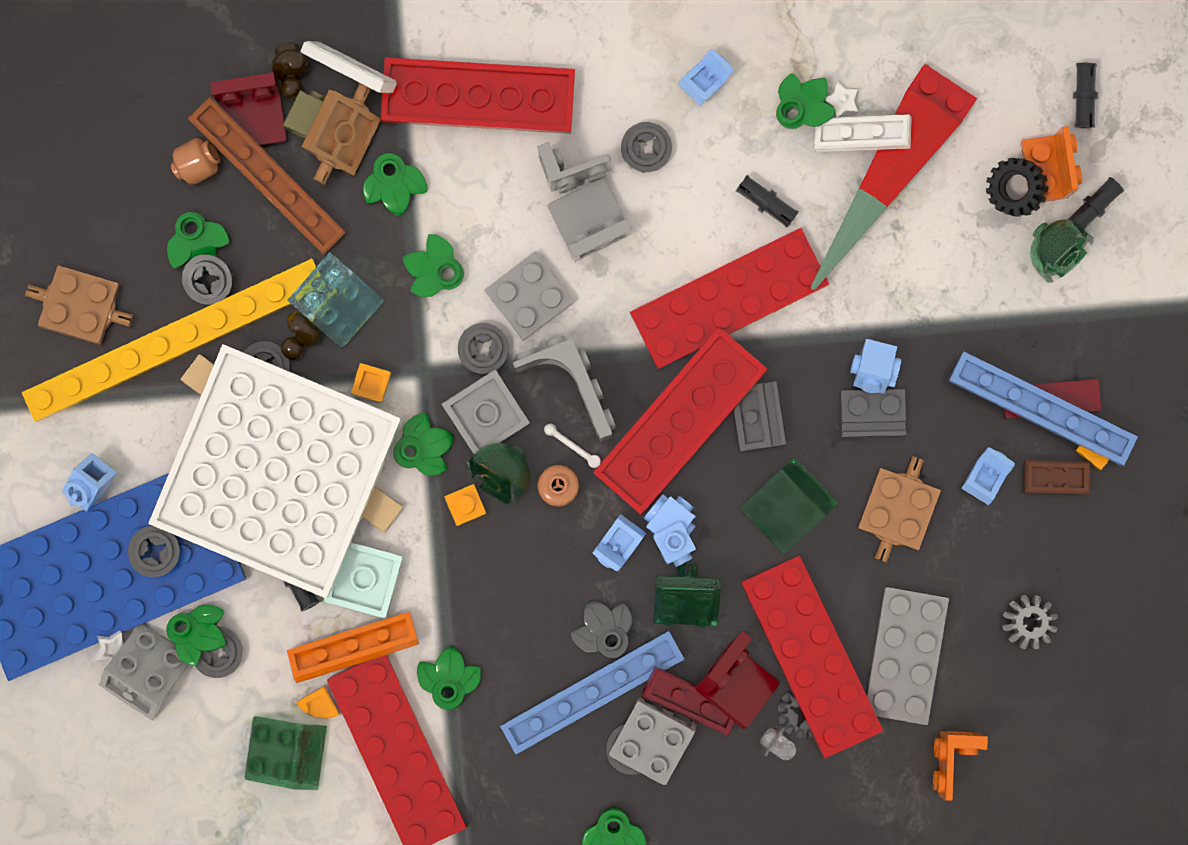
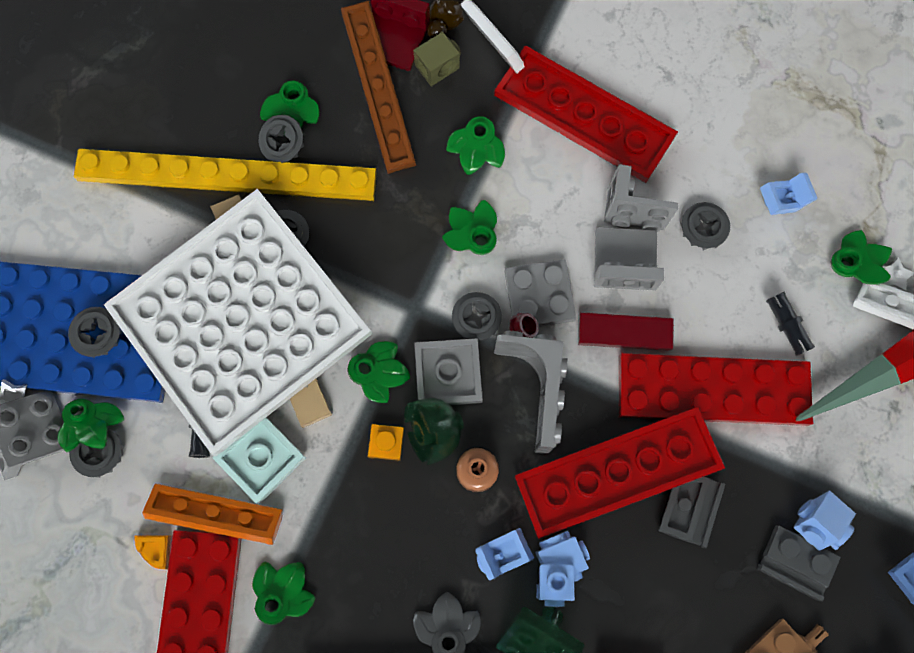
camera: 25 degrees right, 10 degrees down
(79, 305) = (168, 108): medium nougat plate -> none
(88, 482) = (79, 245): light blue brick -> none
(195, 161) = (327, 45): nougat head -> none
(285, 753) = (96, 580): clear green bracket -> none
(305, 334) = (337, 221): dark brown animal -> none
(335, 300) = (375, 210): clear light blue bracket -> none
(341, 132) = (457, 80): medium nougat plate -> none
(371, 383) = (365, 293): light orange plate -> none
(531, 337) = (525, 324): none -> dark red plate
(593, 461) = (519, 466): white hinge -> none
(624, 288) = (625, 331): none -> dark red tile
(789, 505) = (679, 608): clear green bracket -> none

